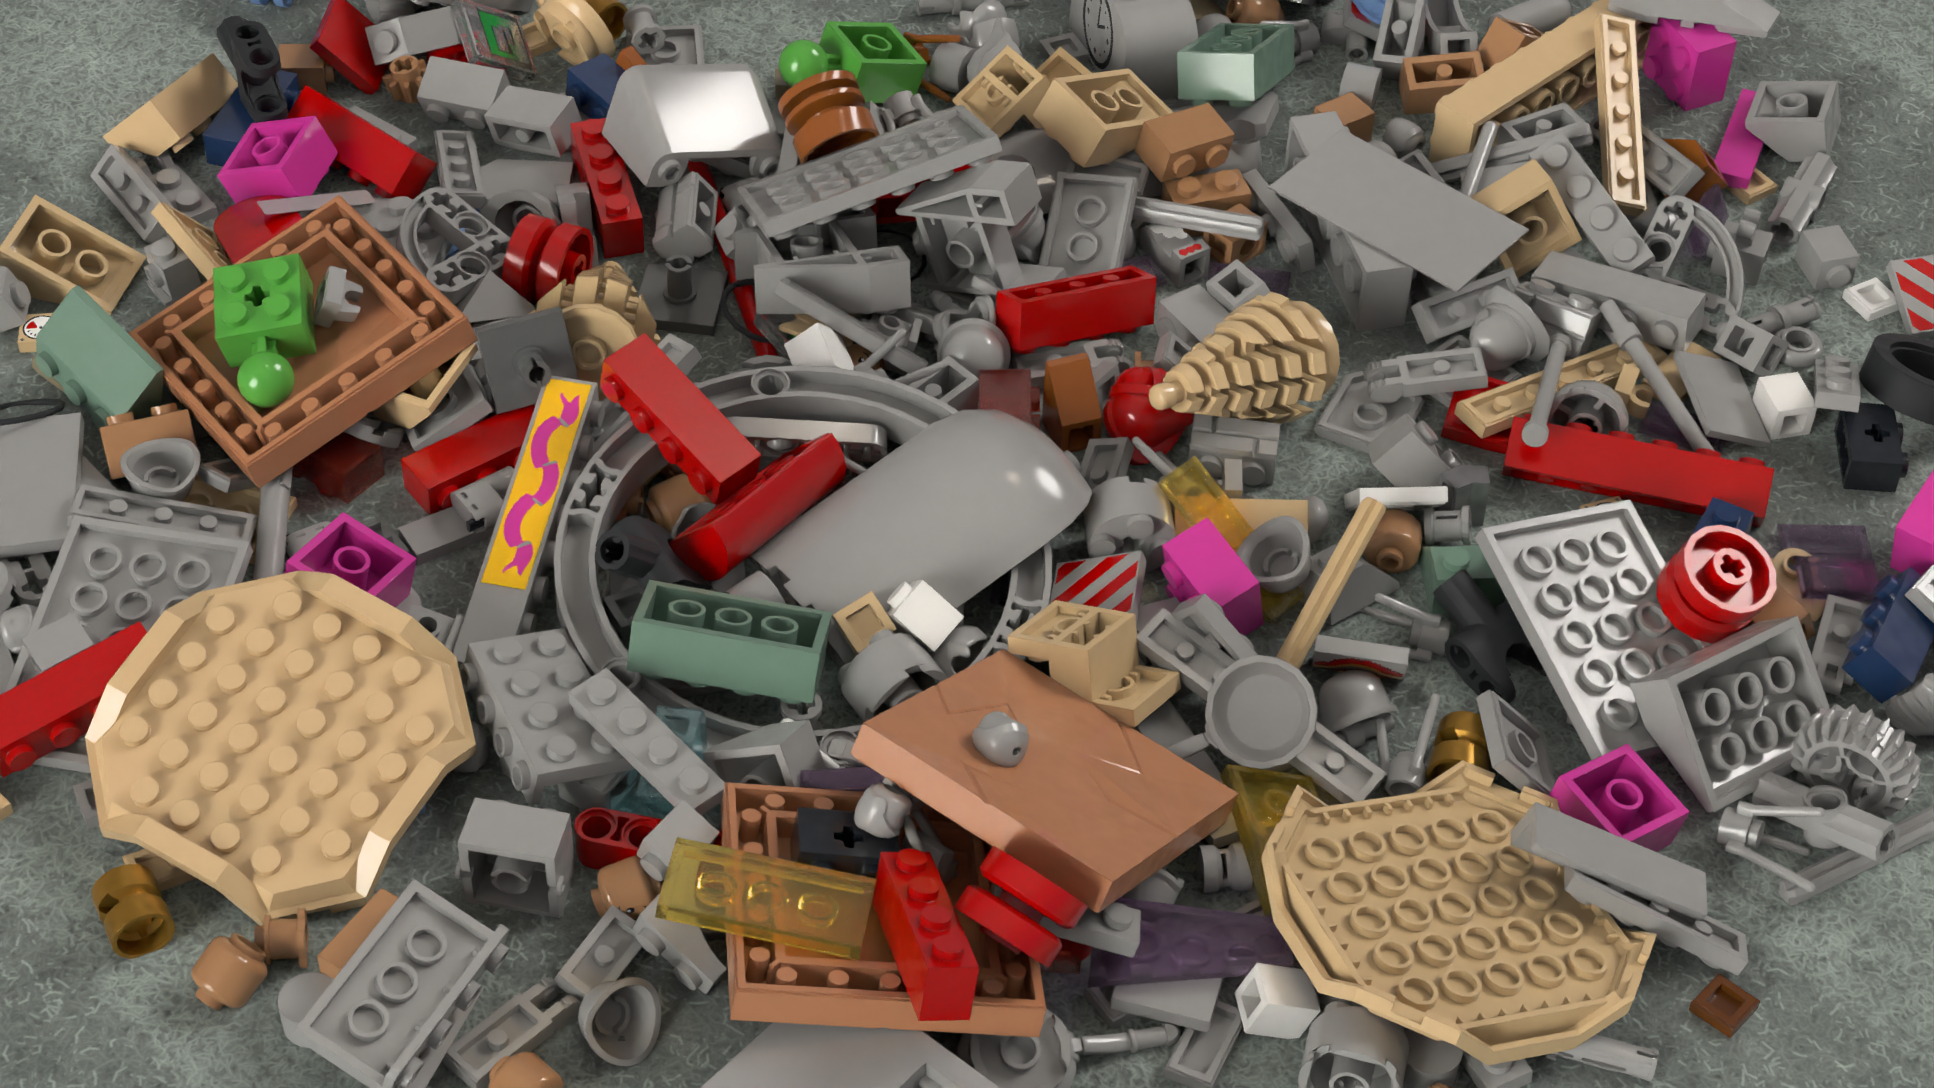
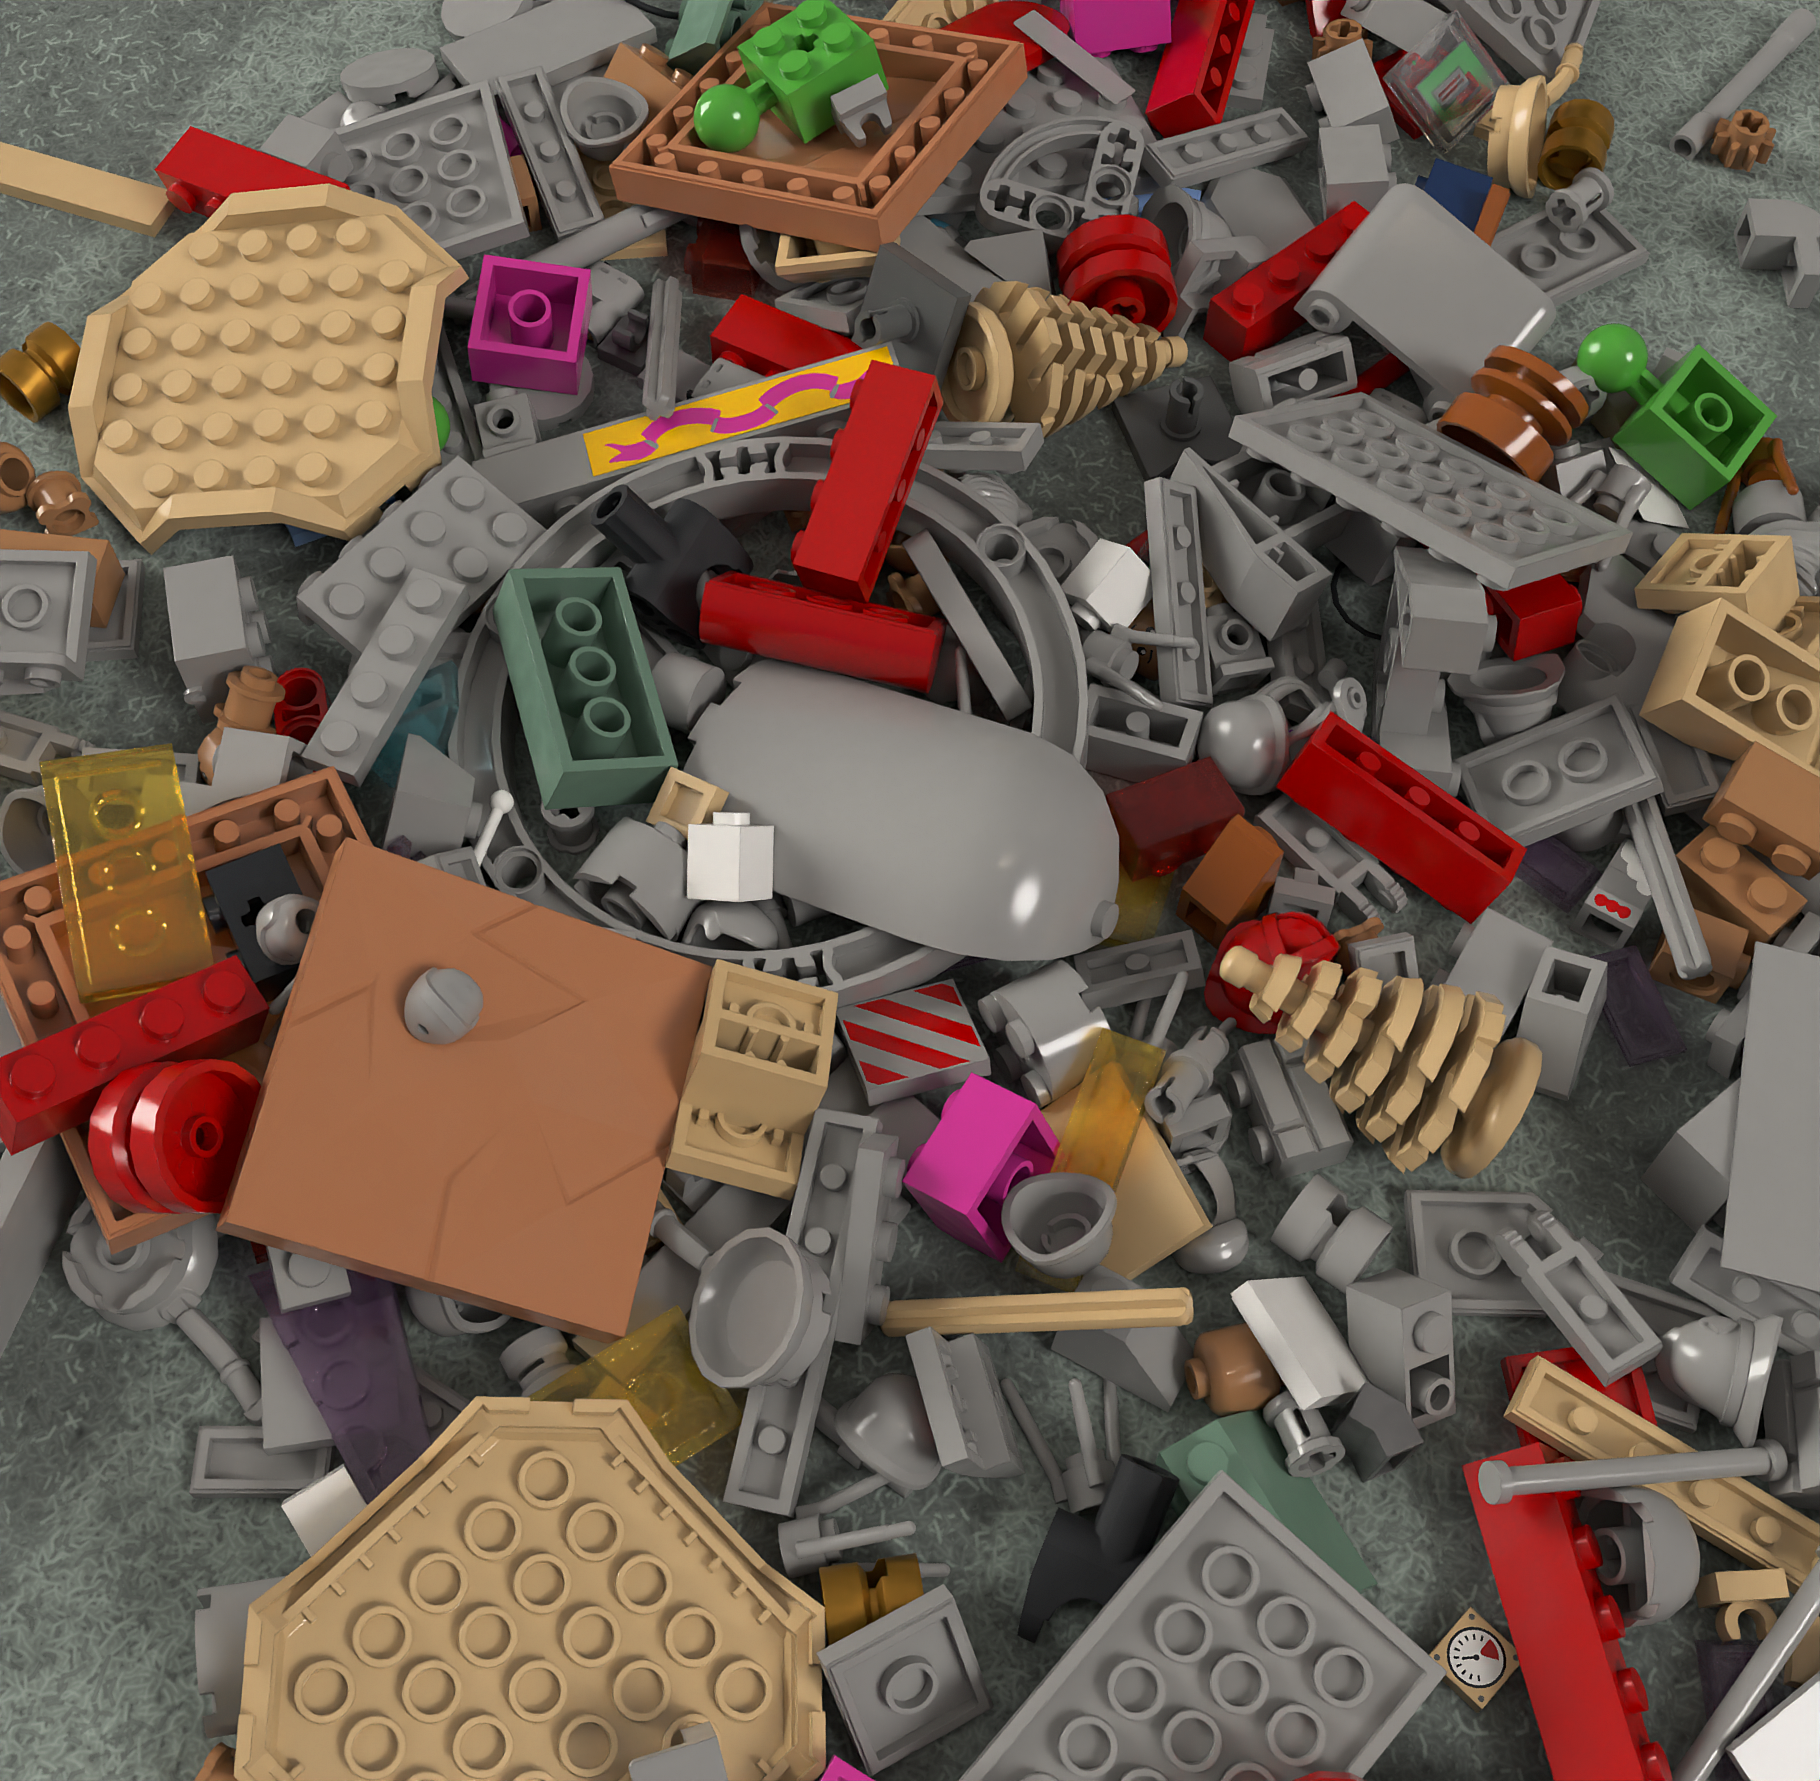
camera: 65 degrees right, 15 degrees up
(429, 515) = (662, 349): none -> light grey axle
(600, 846) = (250, 700): none -> medium nougat brick
(1218, 469) = (1186, 1075): none -> light grey pin
(1330, 464) = (1331, 1233): none -> light grey wheel

